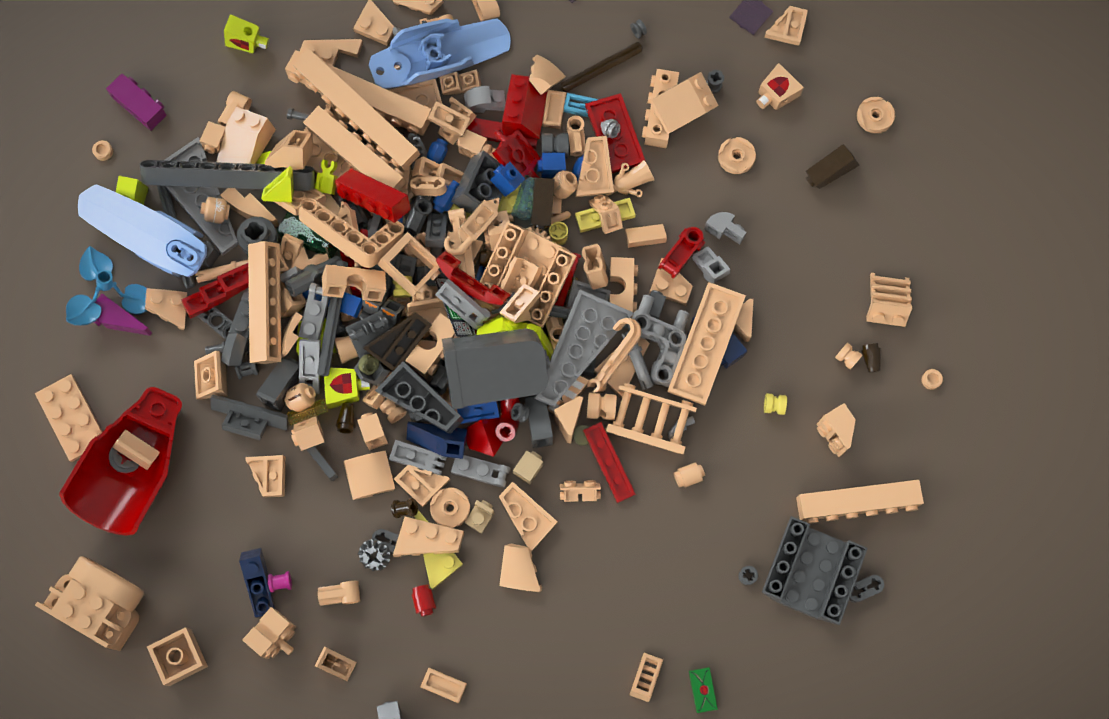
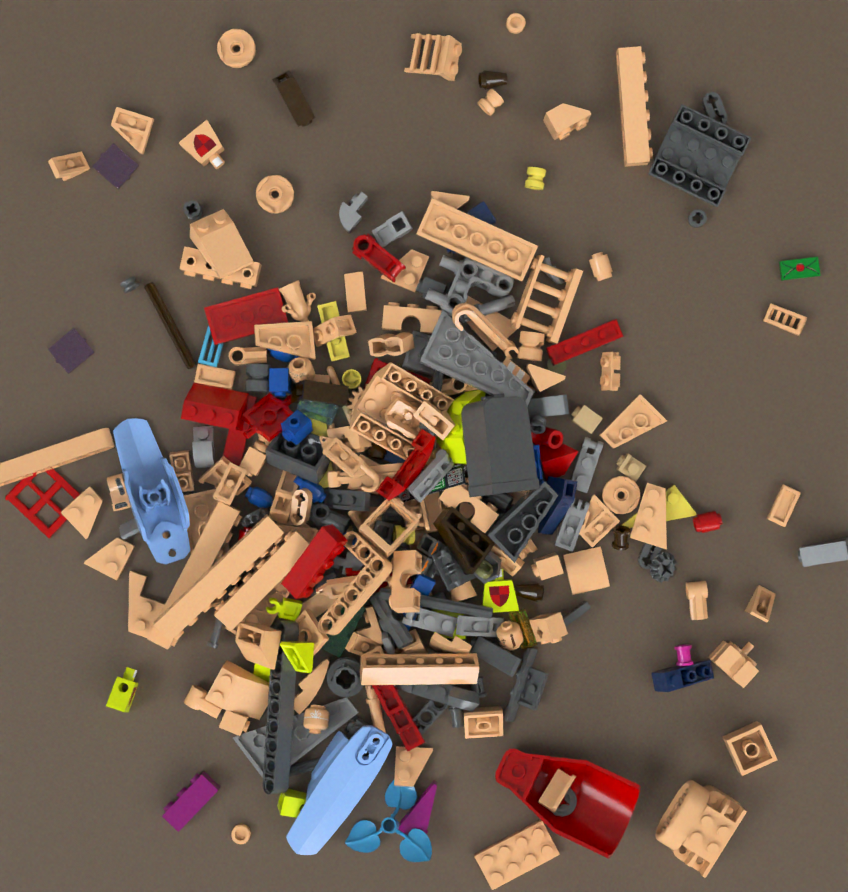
camera: 85 degrees left, 15 degrees up
(269, 474) = (581, 665): light nougat wing -> none
(518, 569) = (683, 432): light nougat slope -> none
(544, 74) = (180, 384): light nougat slope -> none
(610, 128) = (244, 321): light grey plate -> none

